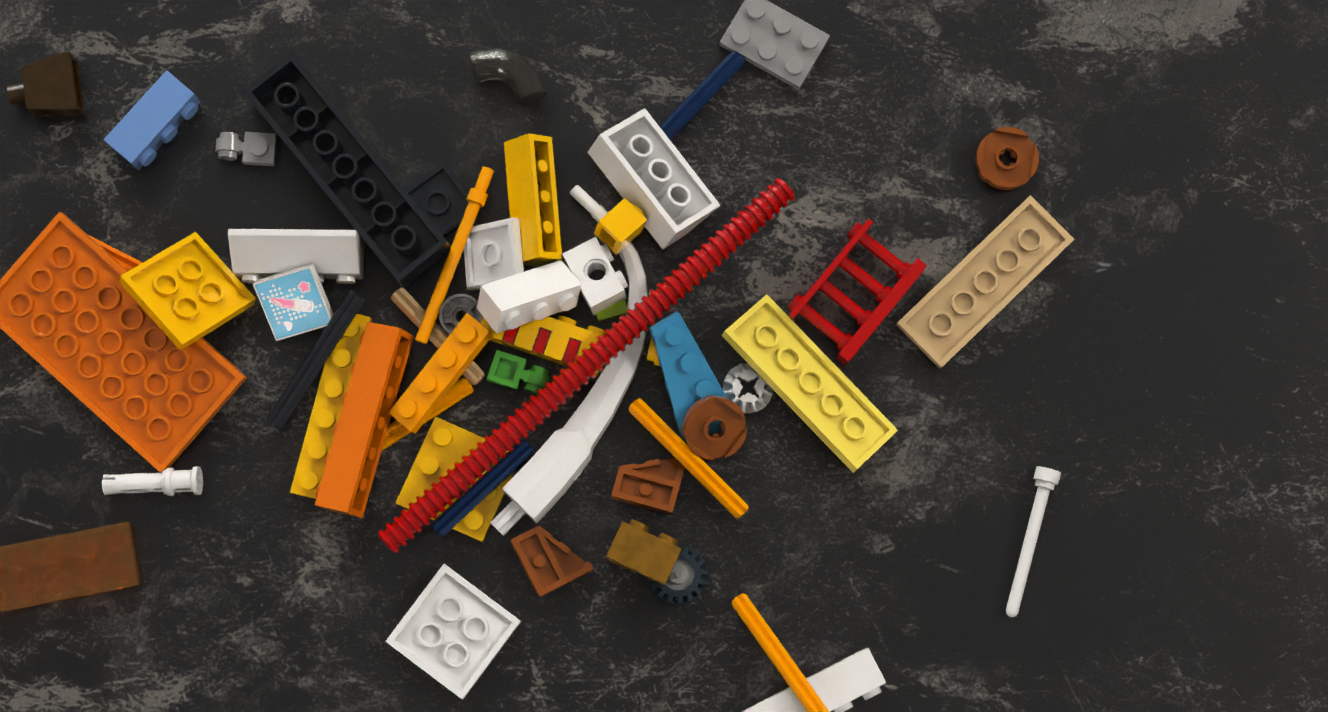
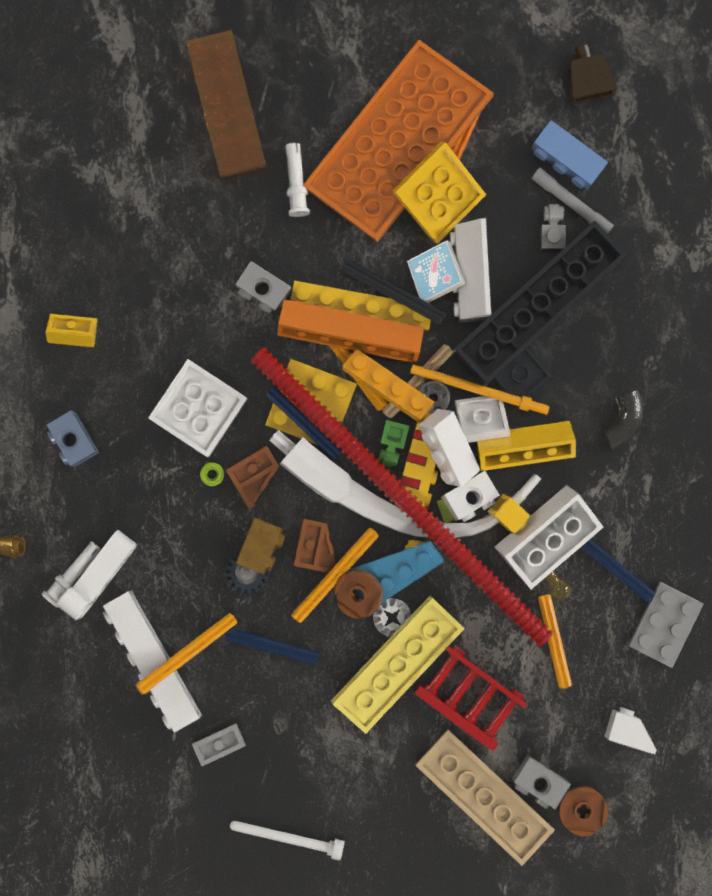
camera: 90 degrees right, 5 degrees up
(189, 147) = (551, 185): none -> light grey piece
(279, 542) = (255, 276): none -> light grey brick
(533, 617) = (205, 470): none -> lime plate
(722, 169) = (561, 589): none -> clear yellow bar
(778, 547) = (272, 646): none -> dark blue axle
(793, 179) = (555, 642): none -> light orange axle
(904, 625) = (218, 744): none -> light grey plate
(907, 94) = (628, 730): none -> white slope
(976, 192) = (552, 791): none -> light grey brick

